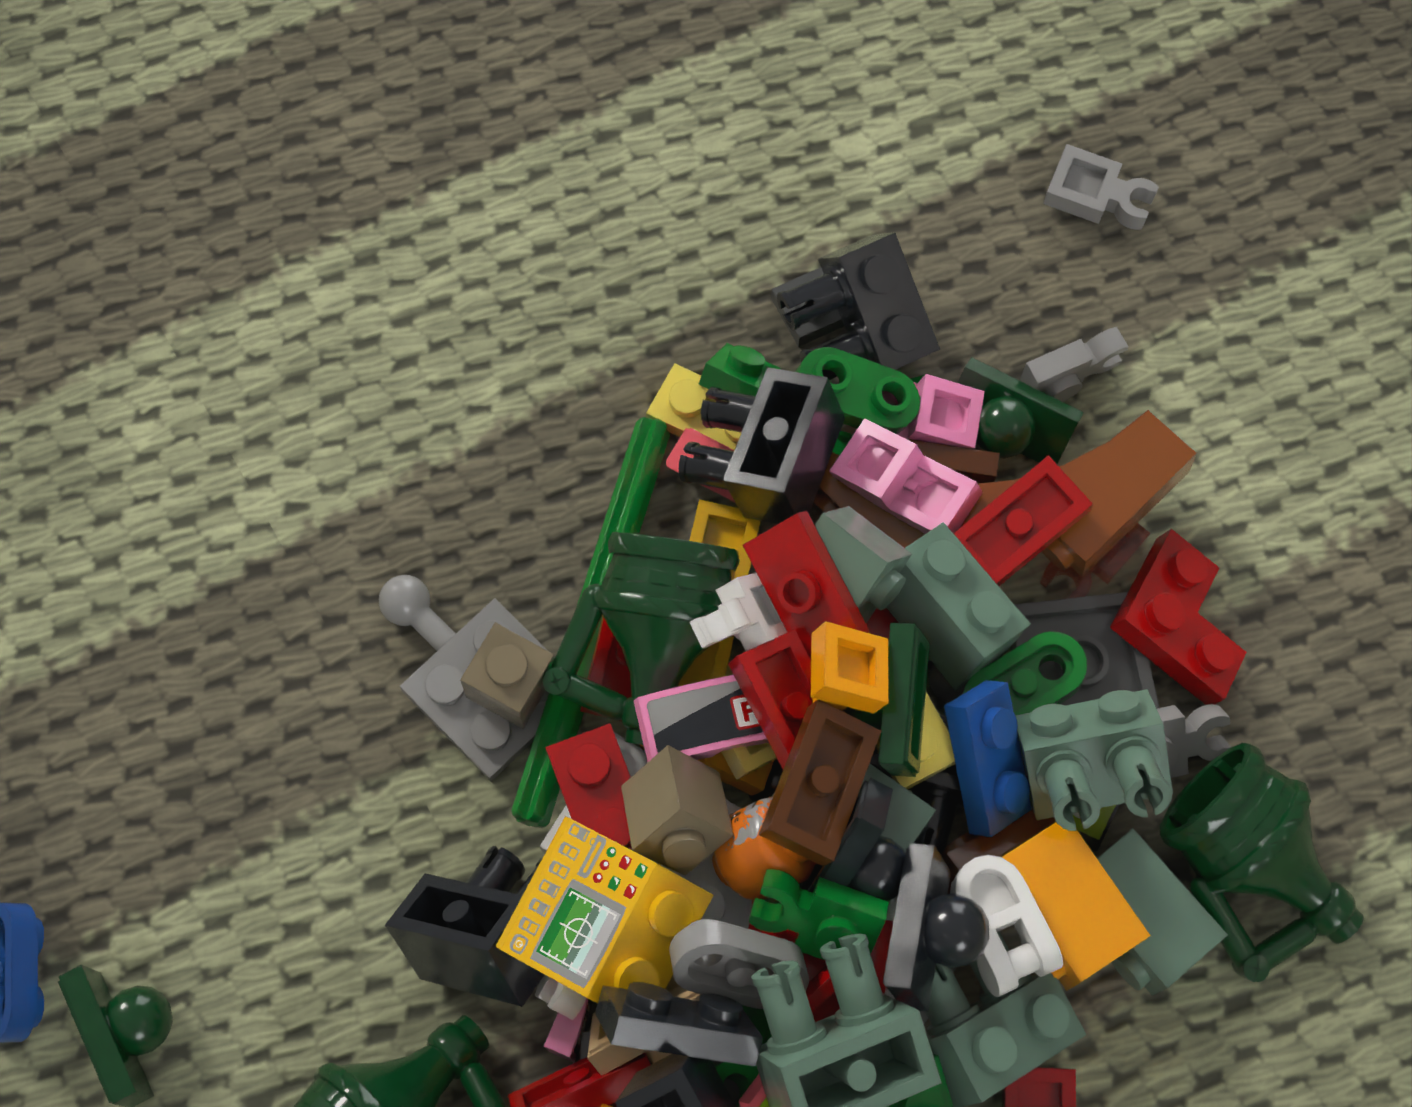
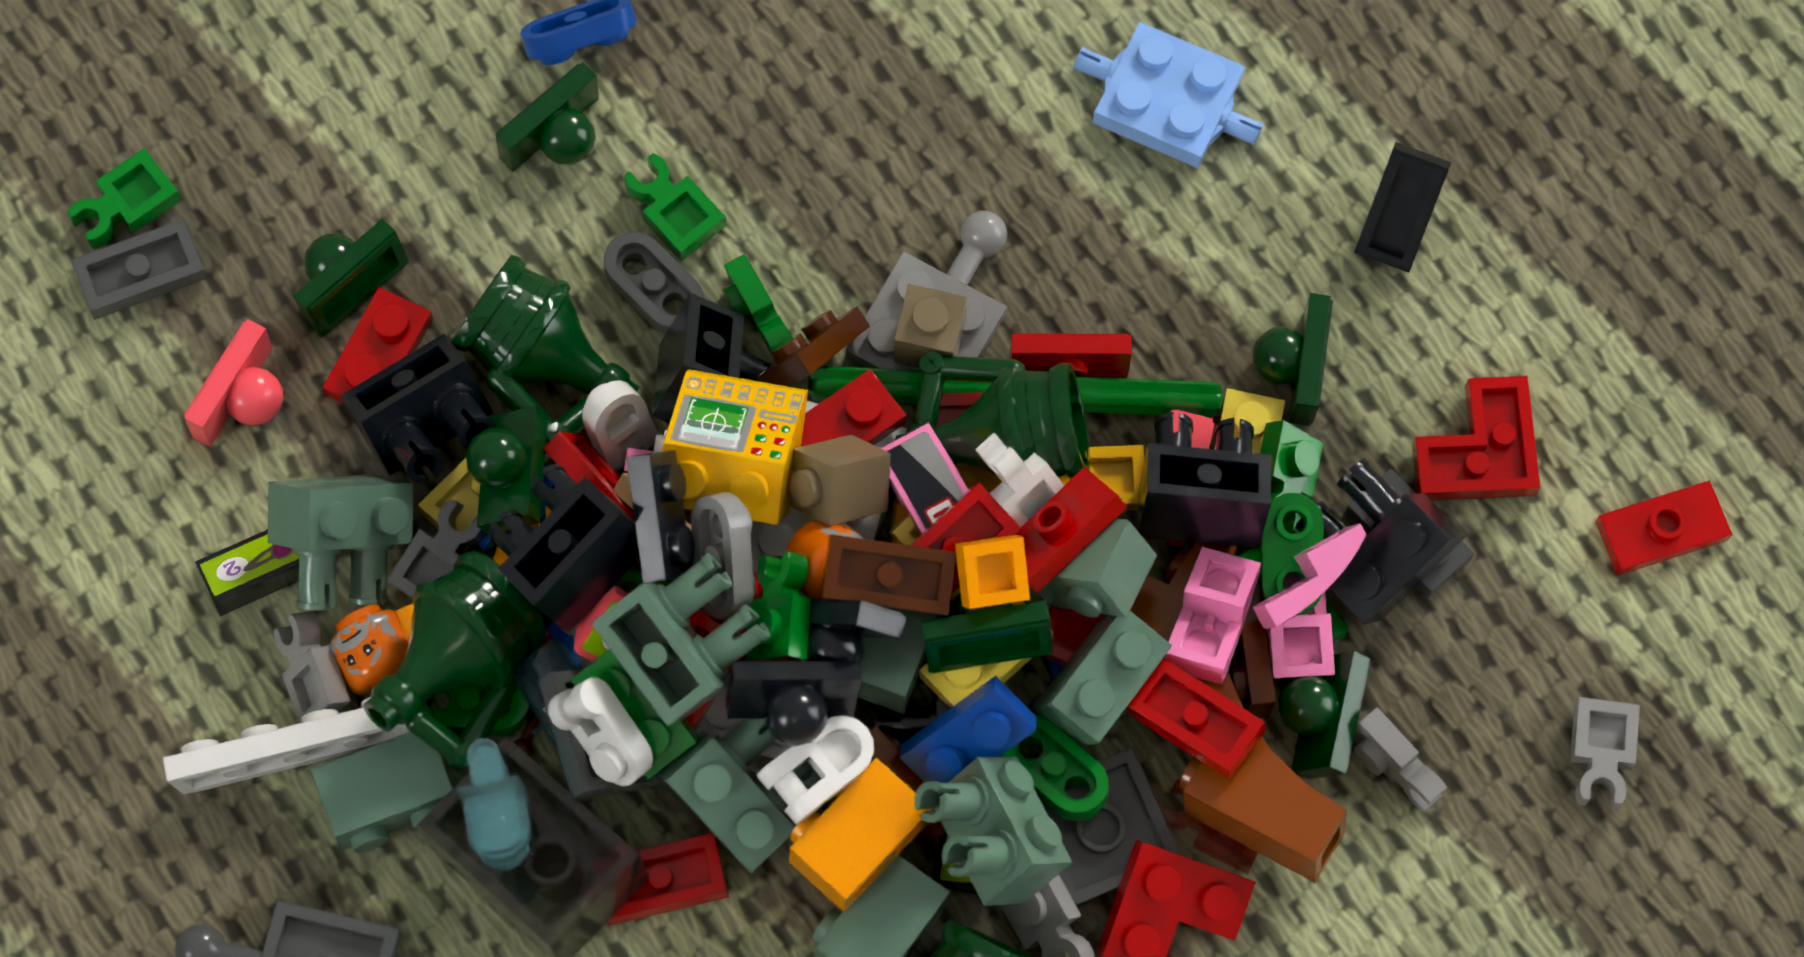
camera: 70 degrees right, 0 degrees up
(272, 917) = (677, 213): none -> green plate
(311, 380) = (1168, 95): none -> light blue plate
(348, 965) = (653, 287): none -> dark grey plate
(399, 863) = (751, 299): none -> green plate
(491, 809) = (823, 340): none -> reddish brown plate
(506, 1050) = (617, 421): none -> white plate
(512, 194) = (1402, 207): none -> black tile
(569, 551) = (1087, 353): none -> red plate
(637, 334) = (1291, 356): none -> dark green tile
(782, 190) = (1497, 454): none -> red plate
(891, 80) = (1663, 528): none -> red plate
(898, 355) = (1321, 568): none -> bright pink slope

